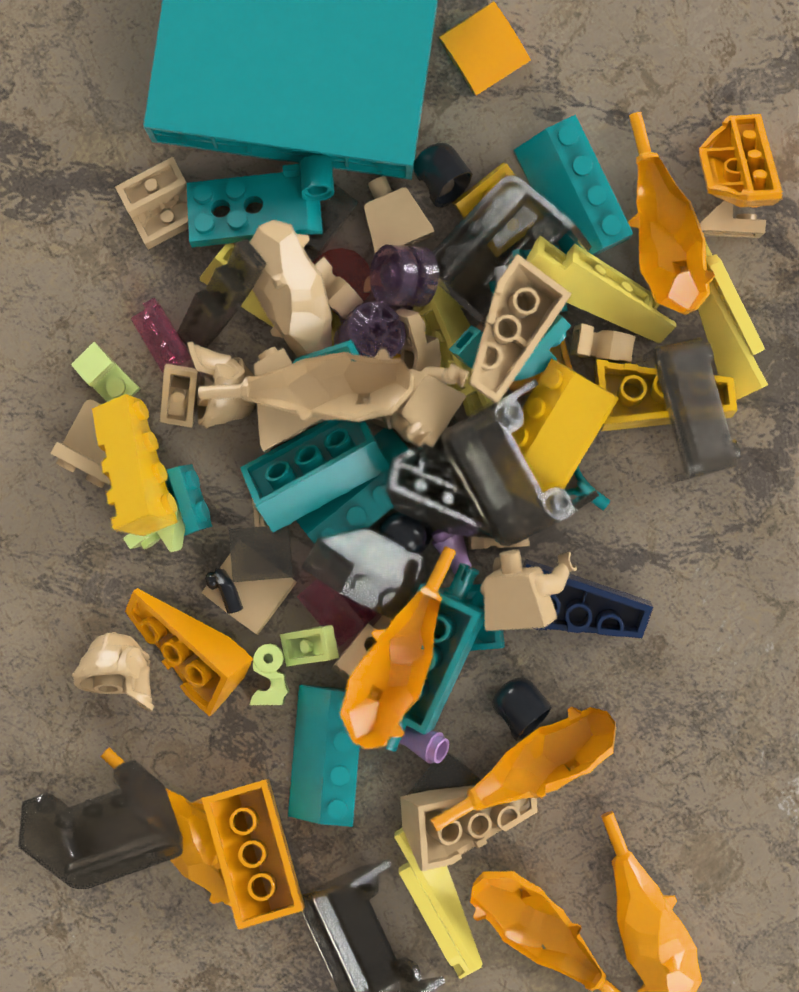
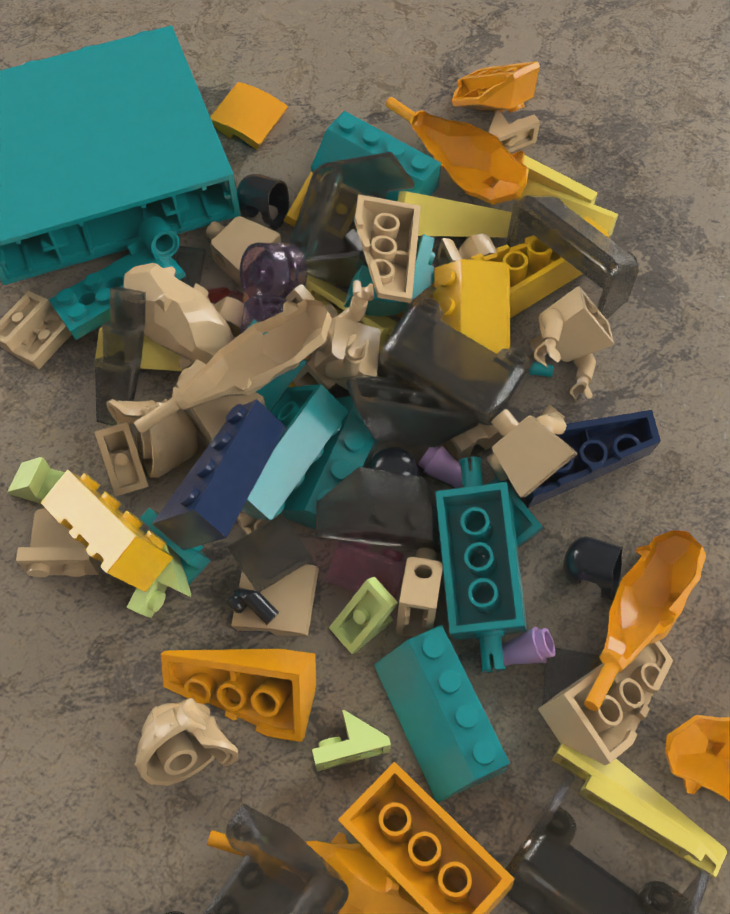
camera: 25 degrees left, 25 degrees down
(160, 335) = (78, 419): clear pink bracket -> none
(248, 484) = (222, 478): none -> dark blue wedge
(253, 744) = (361, 744): none -> yellowish green slope
(267, 662) = (334, 660): yellowish green leg -> none
(395, 667) = (456, 579): light orange piece -> none
(639, 483) = (570, 332): none -> tan torso

